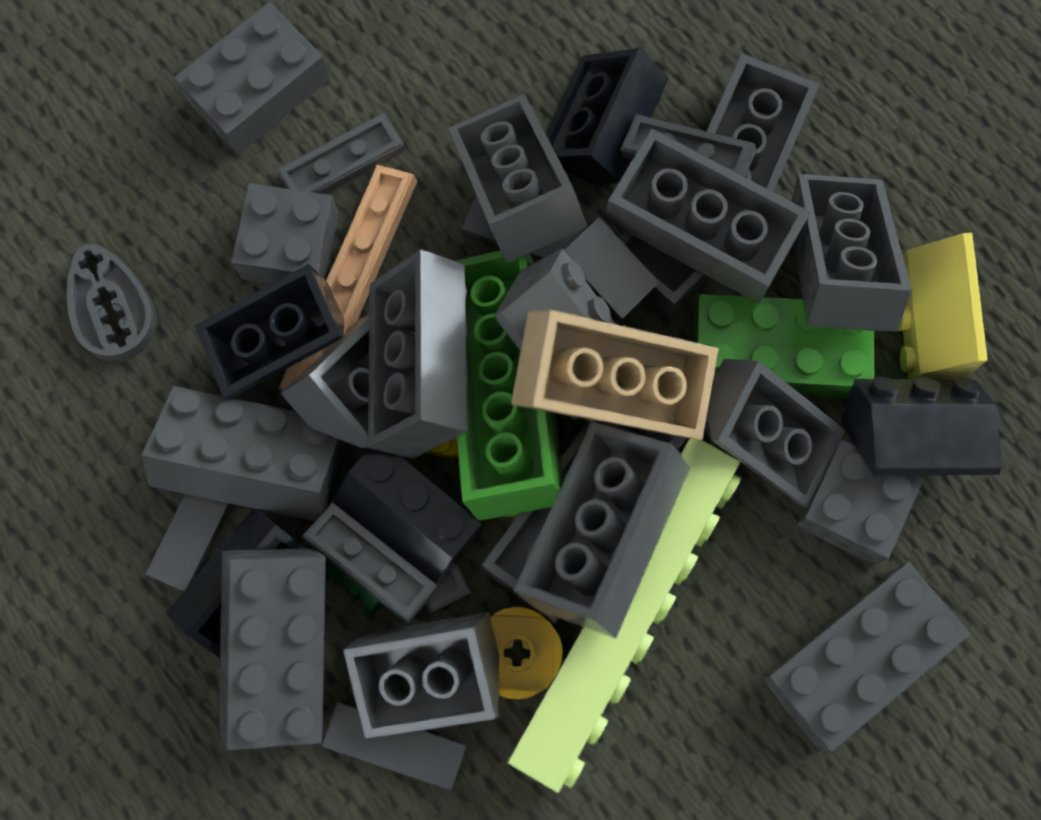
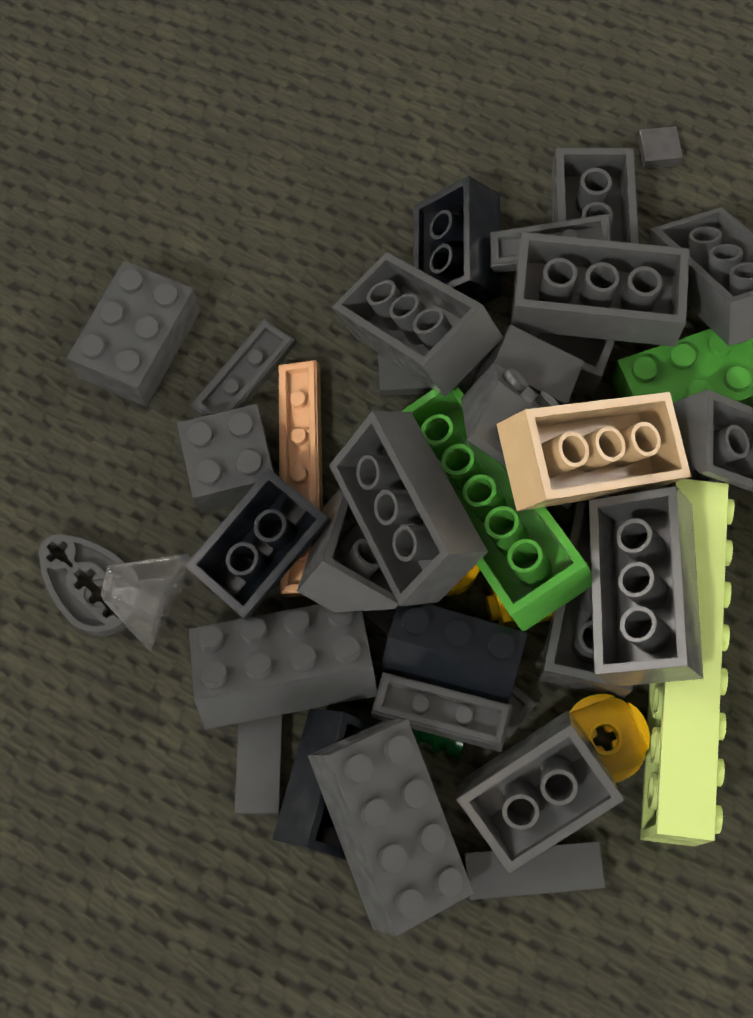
camera: 20 degrees left, 5 degrees down
(151, 336) = (145, 593): none -> clear slope
(857, 92) = (660, 147): none -> flat silver tile

